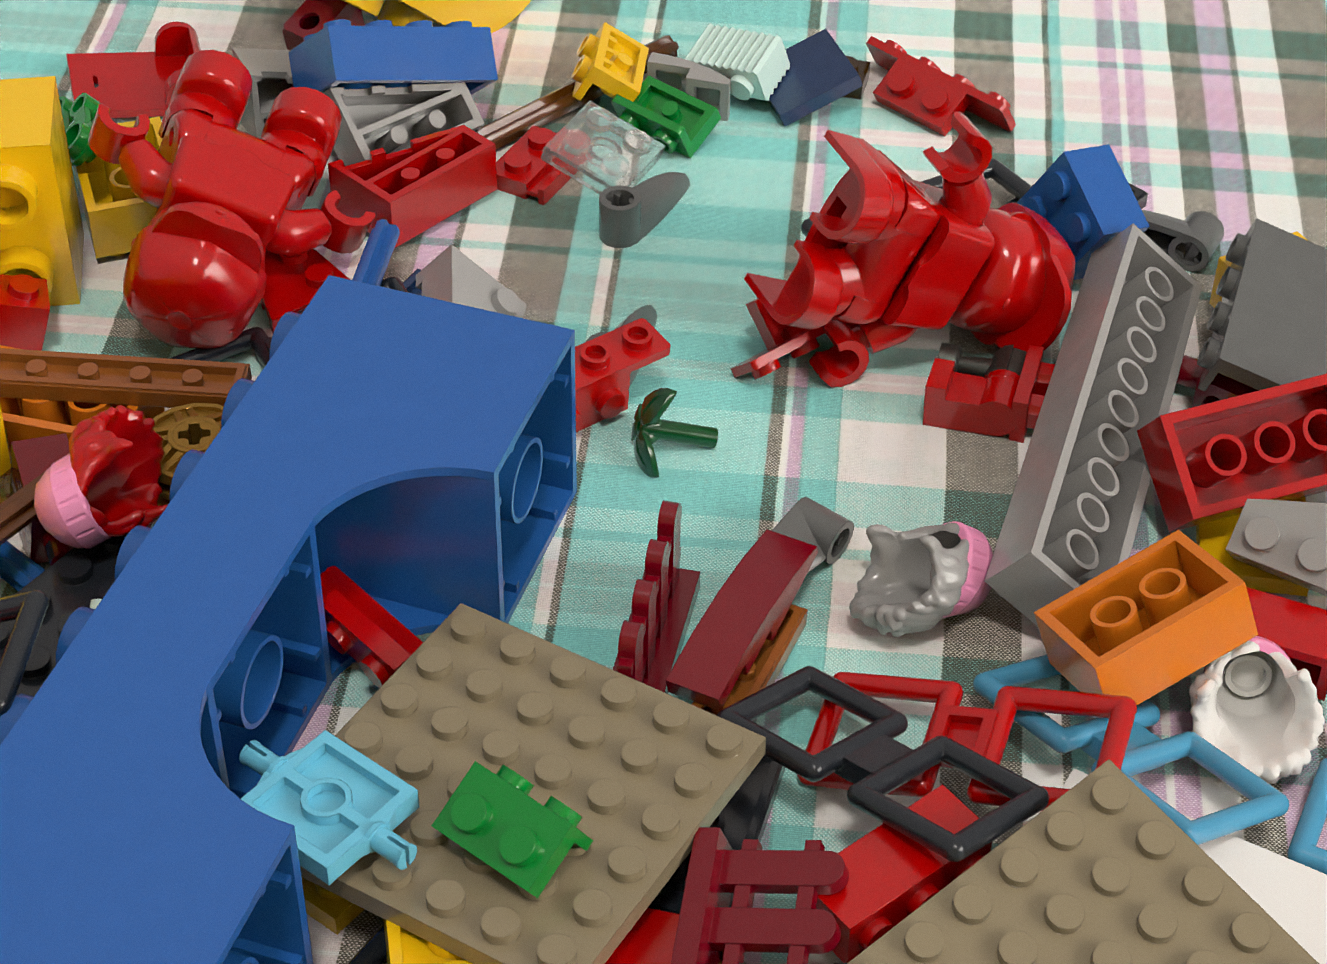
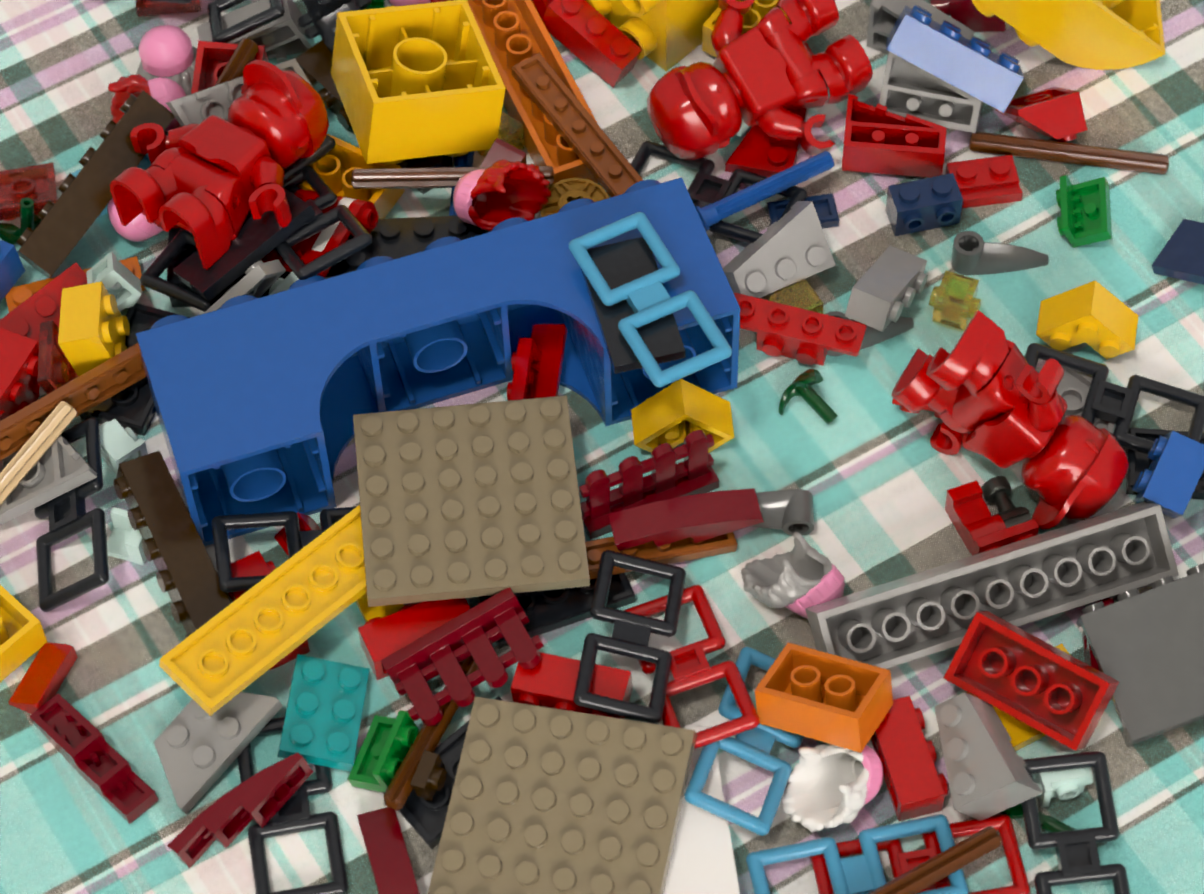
camera: 55 degrees right, 15 degrees up
(336, 802) = (380, 434): medium azure plate -> none
(464, 408) = (619, 265): none -> black tile
(488, 376) = (650, 299): none -> dark azure bar
(510, 829) = (429, 512): green bracket -> none
(523, 209) = (924, 204): none -> dark blue brick
(526, 70) = (1050, 112): none -> red slope
(585, 544) = (679, 411): none -> yellow brick
(602, 150) = (1019, 204): clear plate -> none
(610, 282) = (887, 288): none -> light grey brick
(611, 63) = (1092, 154): yellow bracket -> none
(677, 250) = (955, 300): none -> clear yellow brick
(692, 79) = (1128, 201): light grey slope -> none
(747, 58) = (1167, 210): light aqua brick -> none
(798, 176) = (1088, 316): none -> yellow brick

